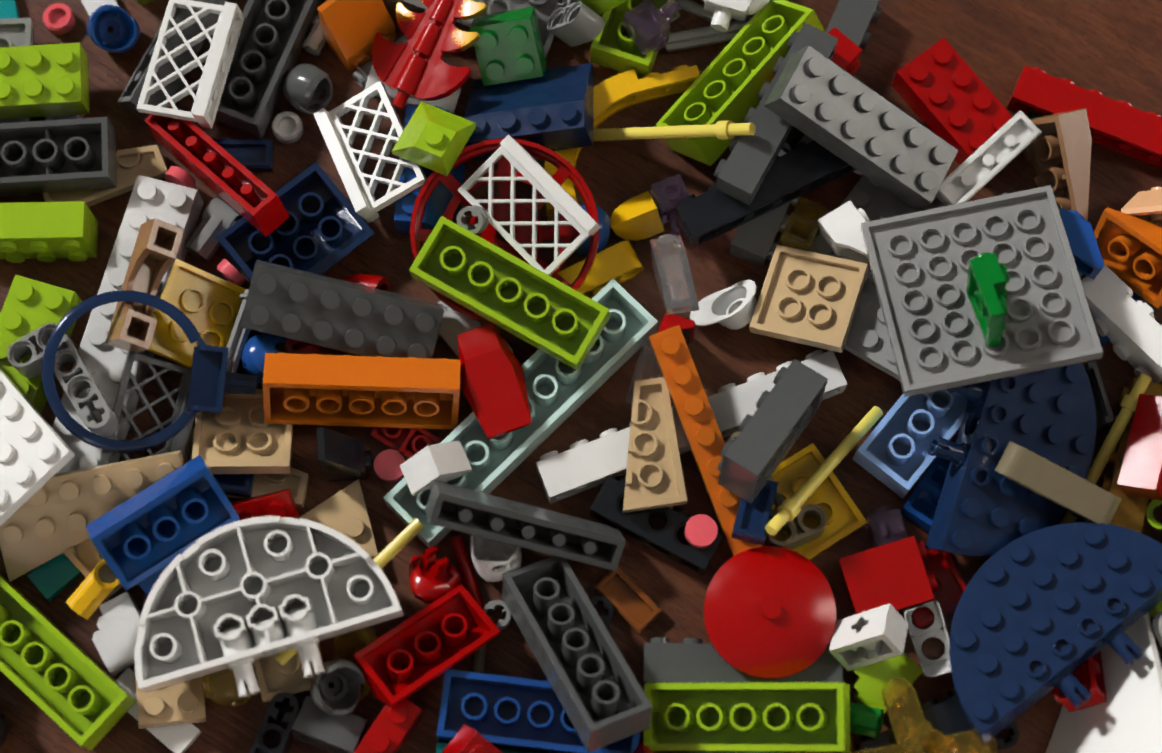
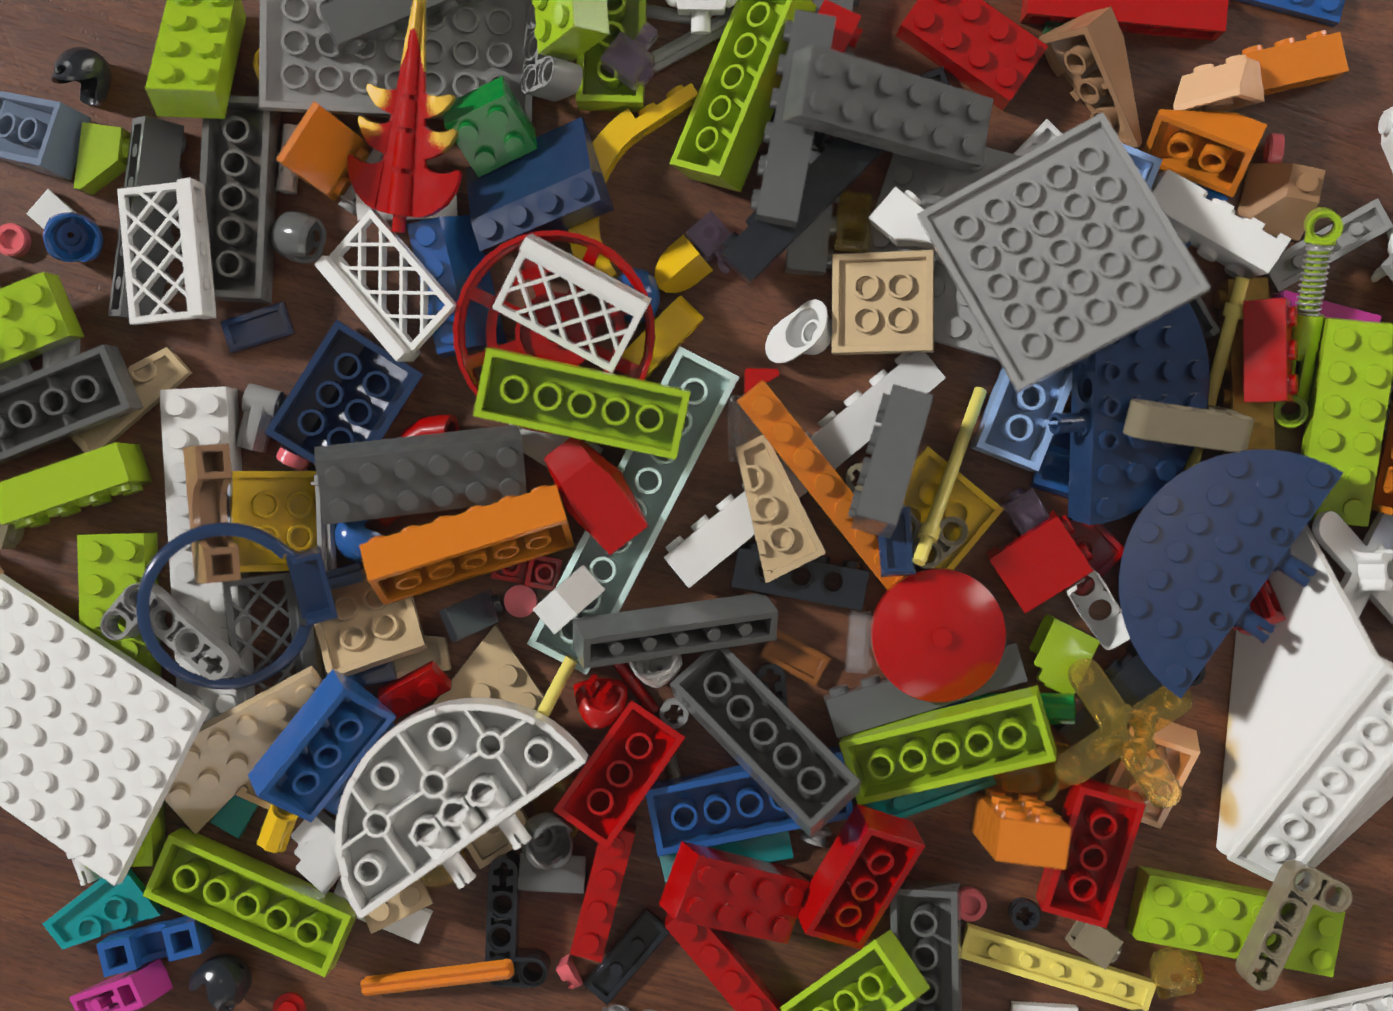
camera: 15 degrees left, 15 degrees up
(179, 176) = (204, 376): coral tile -> none
(220, 172) = (243, 365): red brick -> none
(287, 127) = (293, 282): white tile -> none
(434, 138) = (448, 258): lime slope -> none
(476, 211) = (517, 344): light grey bush -> none
(673, 274) = (740, 323): clear slope -> none
(692, 604) = (858, 642): none -> clear piece
(701, 531) = (847, 576): coral tile -> none
(722, 130) = (744, 159): light yellow bar -> none
(860, 636) = (1043, 631): white brick -> none
(987, 295) = (1074, 259): green plate -> none
(988, 160) = (1024, 96): white tile -> none
(1082, 243) = (1147, 158): blue slope -> none

